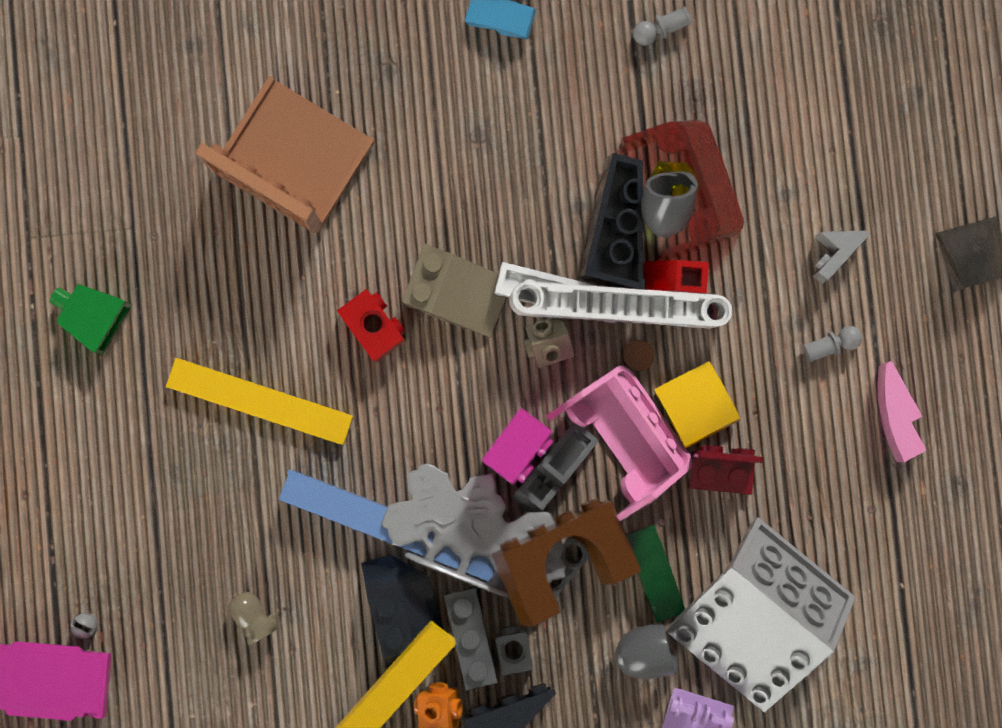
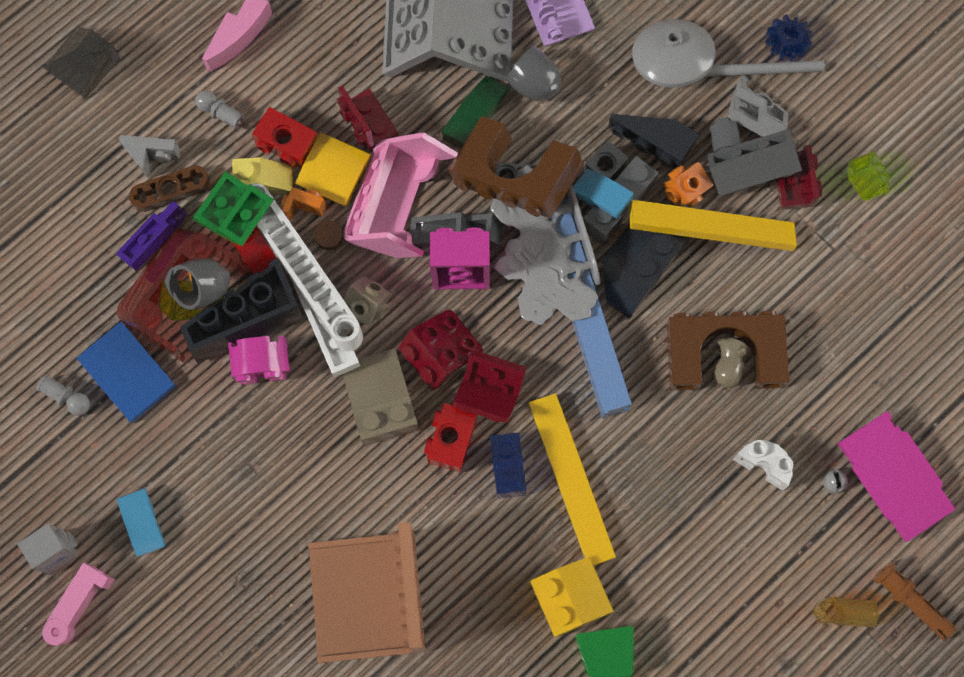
camera: 125 degrees left, 10 degrees down
(136, 585) = (770, 458): none -> white cylinder
(159, 322) = (571, 596): none -> yellow slope
(252, 667) = (761, 332): none -> reddish brown arch
(310, 354) = (508, 465): none -> clear blue brick
(387, 388) = (490, 387): none -> dark red bracket
(458, 376) = (439, 347): none -> dark red bracket
(484, 623) = (603, 192): none -> dark azure slope
(564, 209) = (258, 359): none -> dark pink brick
(643, 93) = (126, 372): none -> blue tile
(682, 360) = (308, 201): none -> orange bracket
(715, 281) = (233, 209): none -> green slope
(736, 335) = (271, 174): none -> light yellow slope
(753, 198) = (151, 236): none -> dark purple hinge
(776, 381) = (277, 125): none -> red brick
(804, 228) = (153, 203): none -> reddish brown beam

